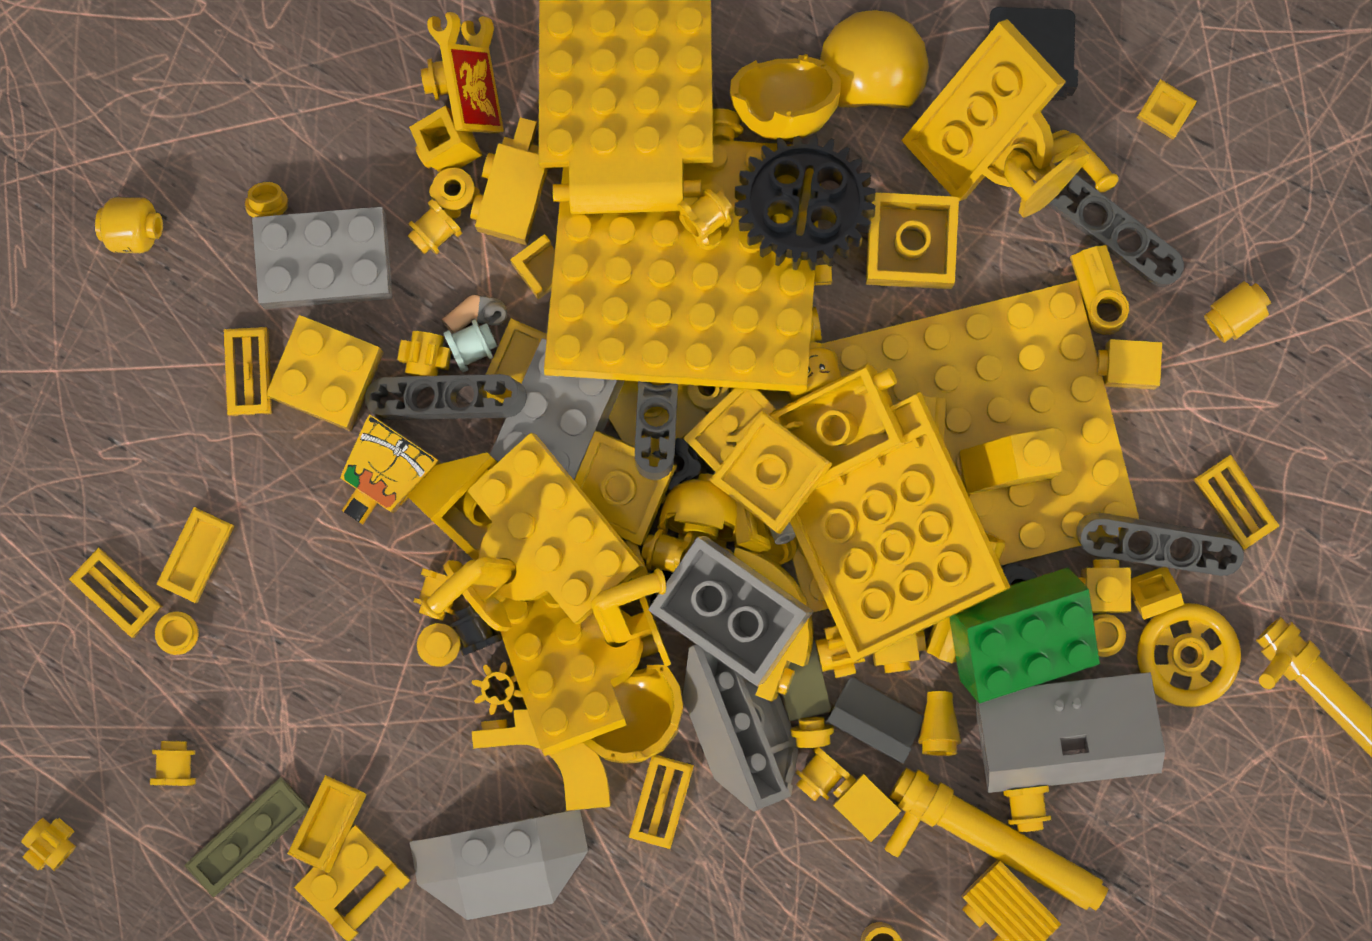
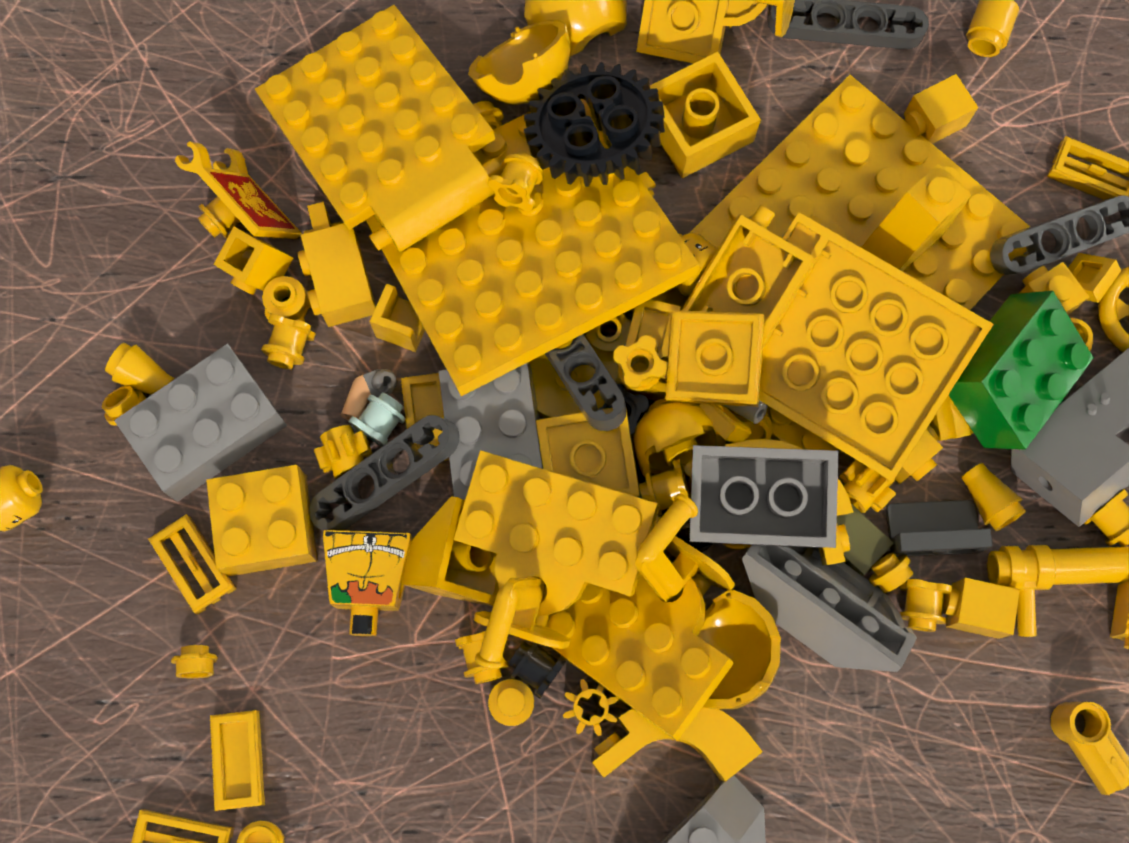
camera: 35 degrees left, 10 degrees down
(205, 455) = (194, 662): none -> yellow plate
(295, 178) = (136, 369): none -> yellow cone
(651, 837) = (816, 714): yellow tile -> none
(694, 430) = (639, 352): none -> yellow brick
(1099, 286) = (874, 69): yellow piece -> none

